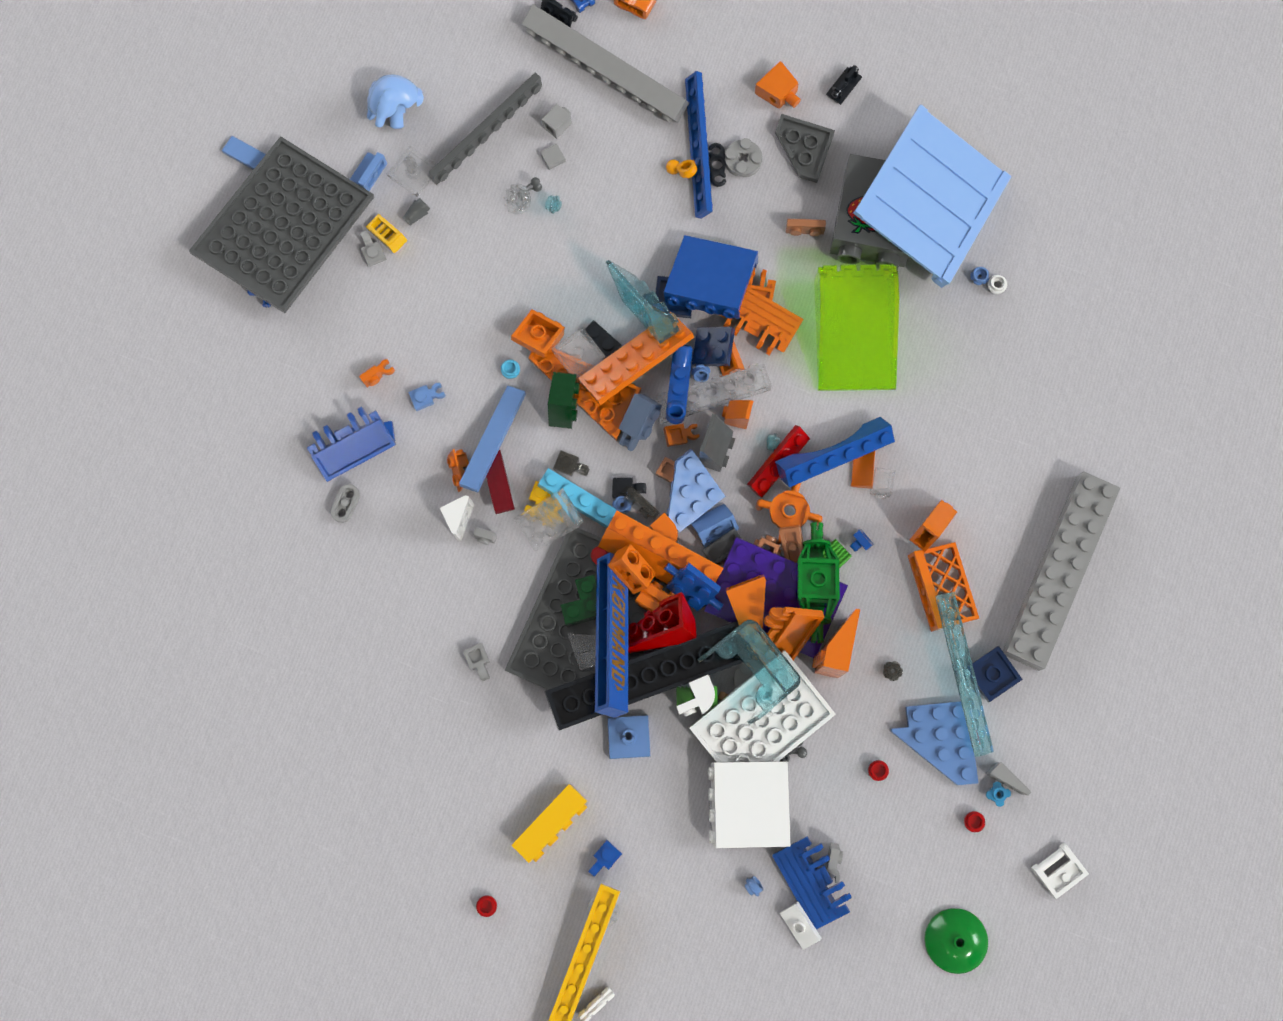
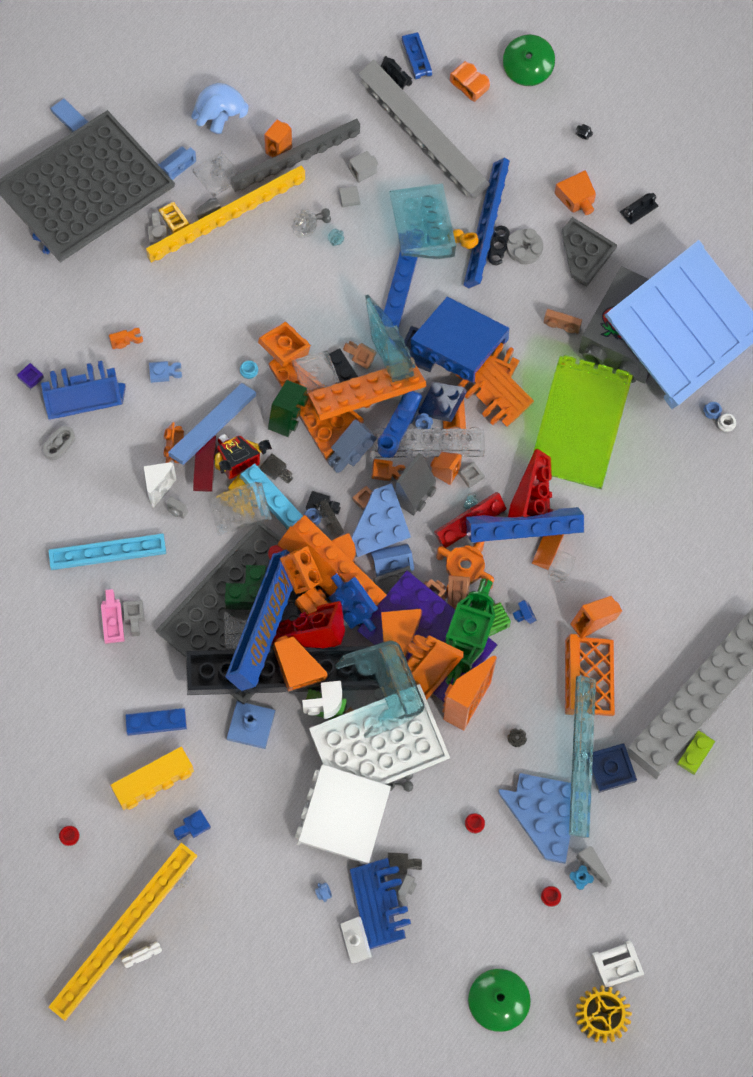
camera: 10 degrees right, 10 degrees down
(293, 441) = (30, 376): none -> dark purple plate
(430, 602) = (107, 551): none -> medium azure plate
(435, 211) = (225, 214): none -> yellow plate
(457, 670) = (112, 619): none -> bright pink hinge
(463, 117) = (278, 139): none -> orange brick
(528, 463) = (238, 454): none -> torso
(534, 762) = (156, 721): none -> blue plate
(618, 320) = (362, 354): none -> nougat plate
(632, 226) = (400, 288): none -> blue plate
(636, 163) = (423, 222): none -> clear light blue slope
(659, 670) = (296, 664): none -> orange slope
(764, 413) = (471, 474): none -> light grey tile
(765, 20) = (584, 131): none -> black plate
(819, 834) = (402, 861): none -> clear smoke plate
(832, 417) = (533, 492): none -> red wedge
(1070, 633) = (696, 752): none -> lime plate
(1073, 940) = (620, 1008): none -> yellow gear

